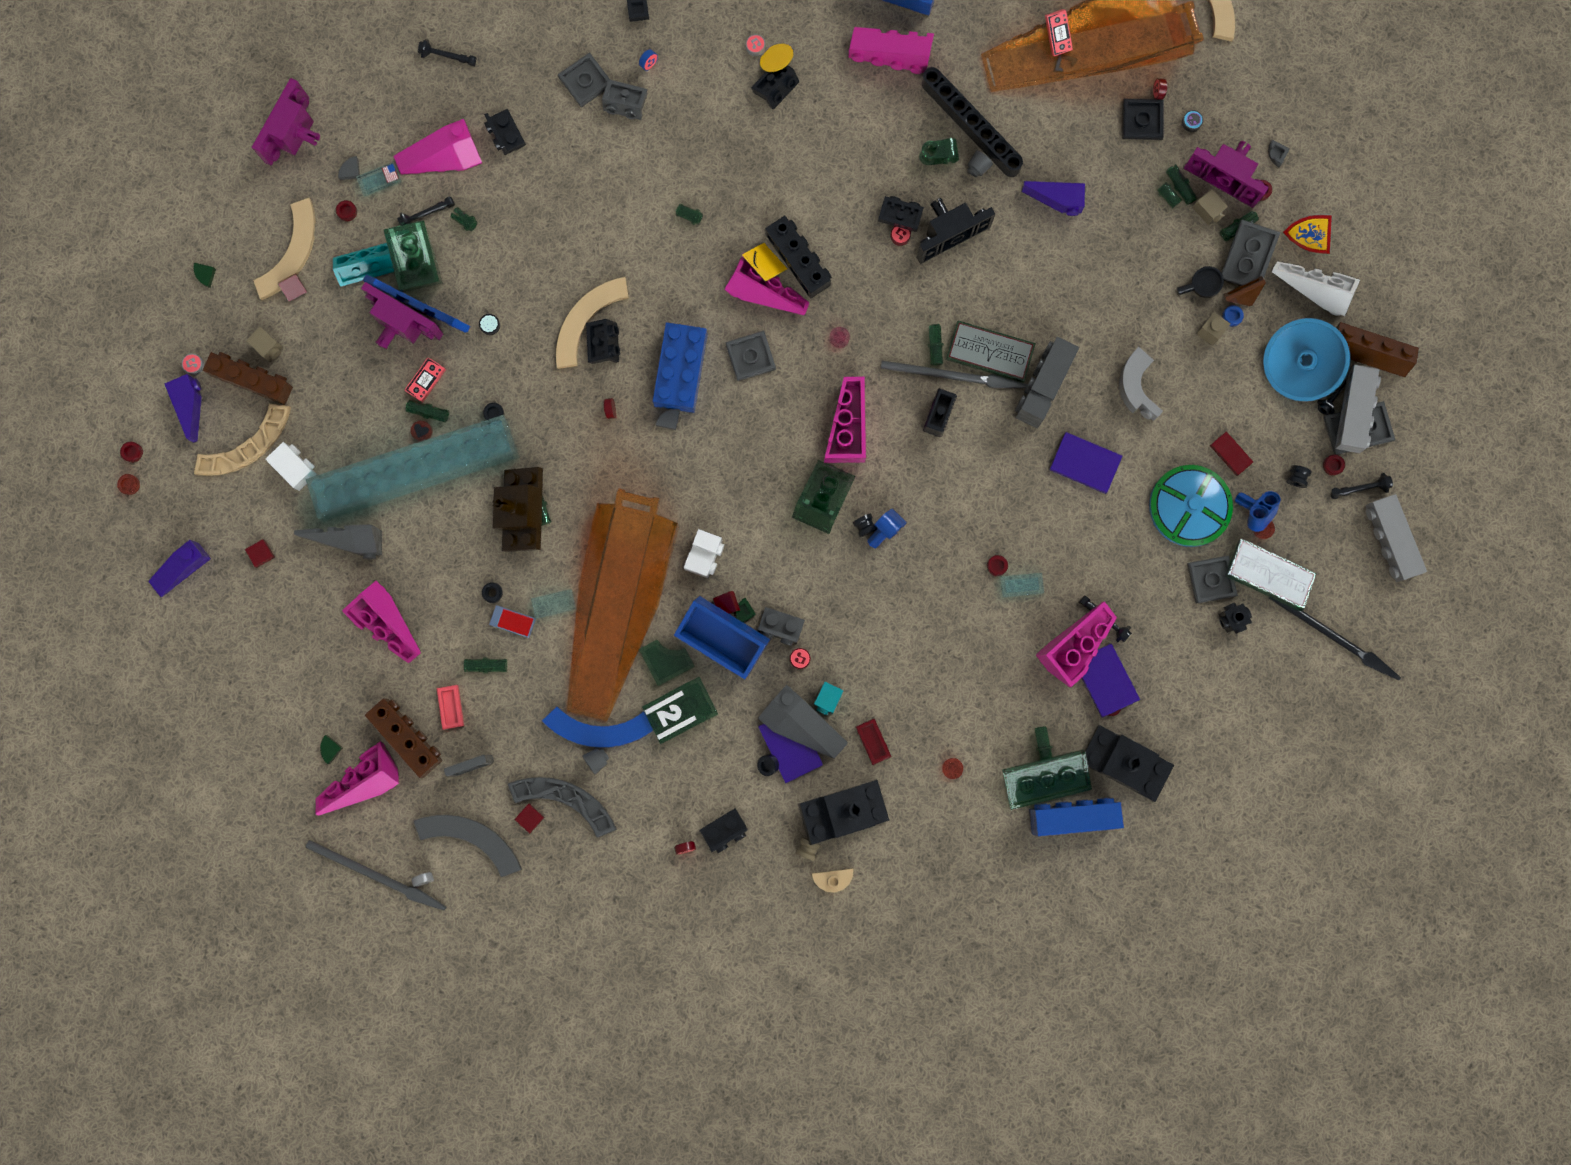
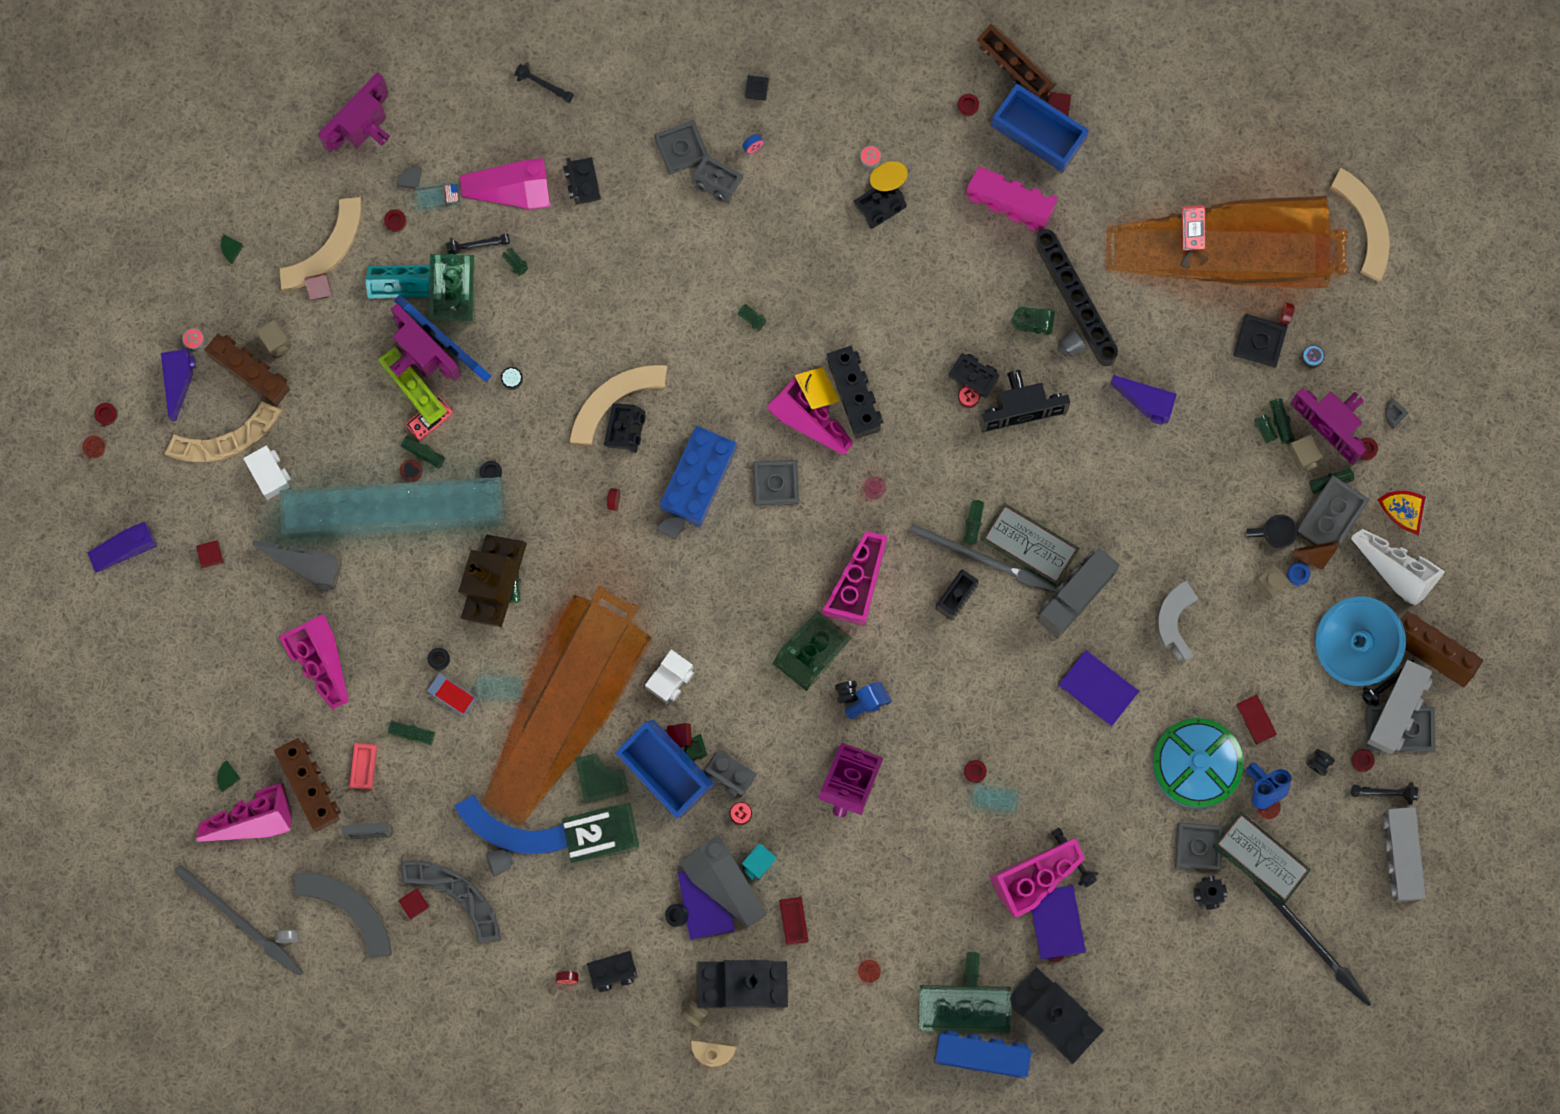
camera: 15 degrees right, 5 degrees down
(404, 356) = (414, 388): none -> lime tile
(891, 603) = (850, 780): none -> magenta brick

